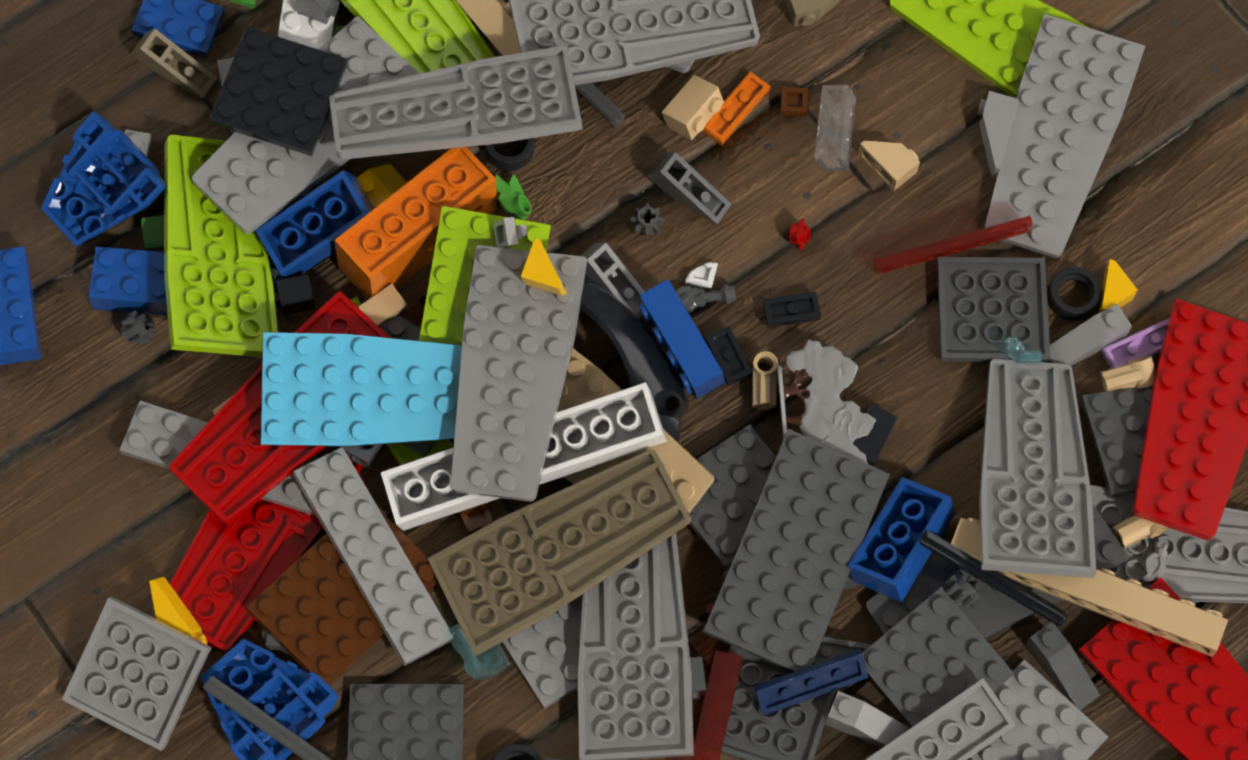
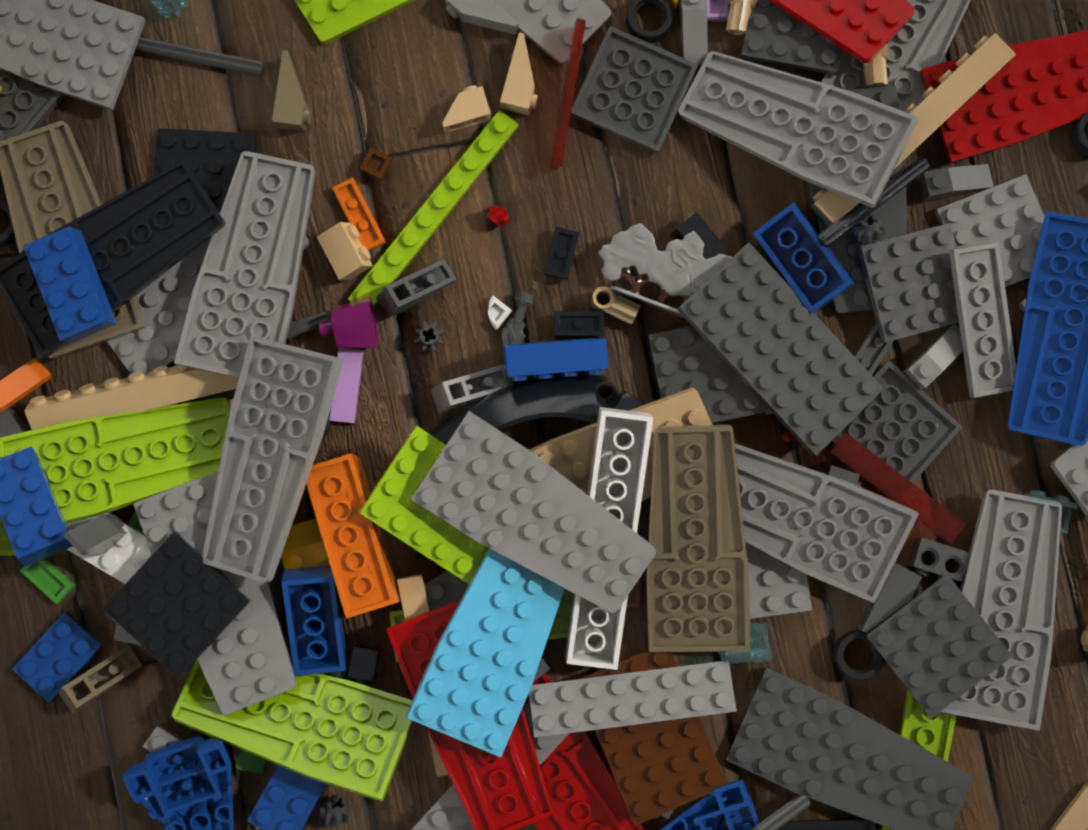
camera: 65 degrees left, 15 degrees up
(507, 233) = (412, 467): light grey tile -> none
(512, 197) = (358, 441): bright green plate -> none
(540, 271) = (467, 456): yellow slope -> none
(561, 167) = (347, 389): none -> lavender tile
(623, 145) = (352, 325): none -> magenta torso
(778, 175) = (436, 207): none -> lime plate
(810, 682) = (890, 388): dark blue plate -> none
(835, 128) = (418, 141): clear brick -> none
(940, 199) = (519, 86): none -> tan slope
(1019, 353) = (686, 86): clear light blue arm -> none
(1155, 564) = (908, 67): light grey piece -> none

